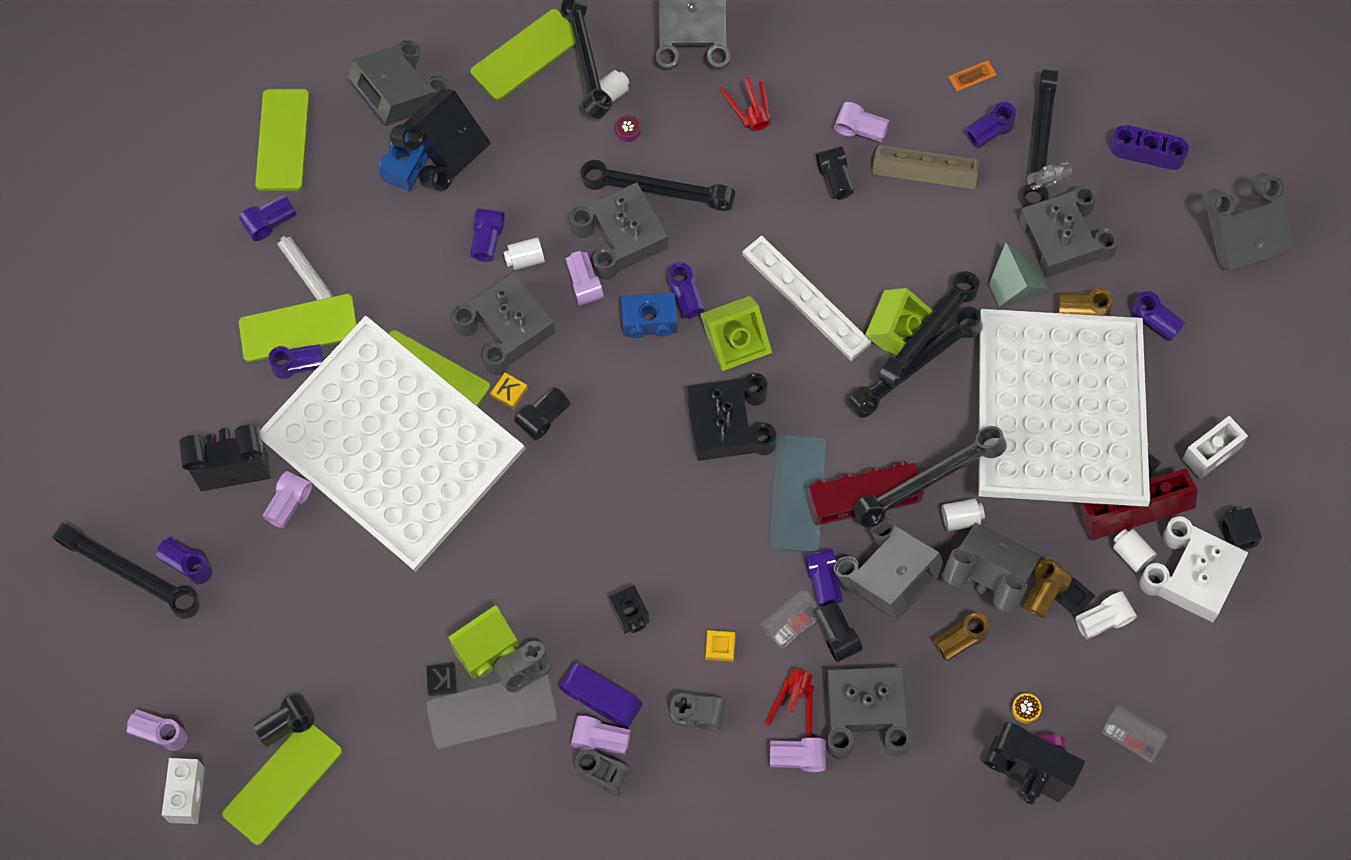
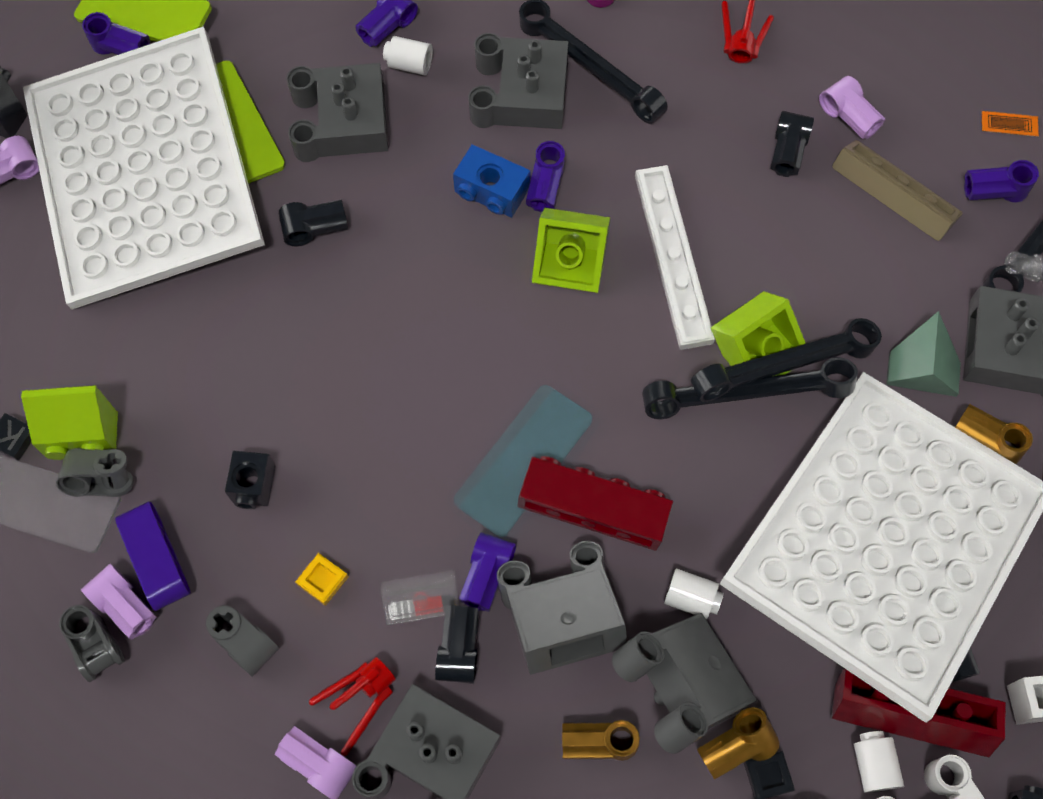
camera: 30 degrees right, 0 degrees up
(509, 391) = (297, 181): yellow tile -> none
(585, 283) = (448, 118): lavender piece -> none
(722, 421) = (493, 329): black piece -> none
(929, 477) = (677, 527): black piece -> none

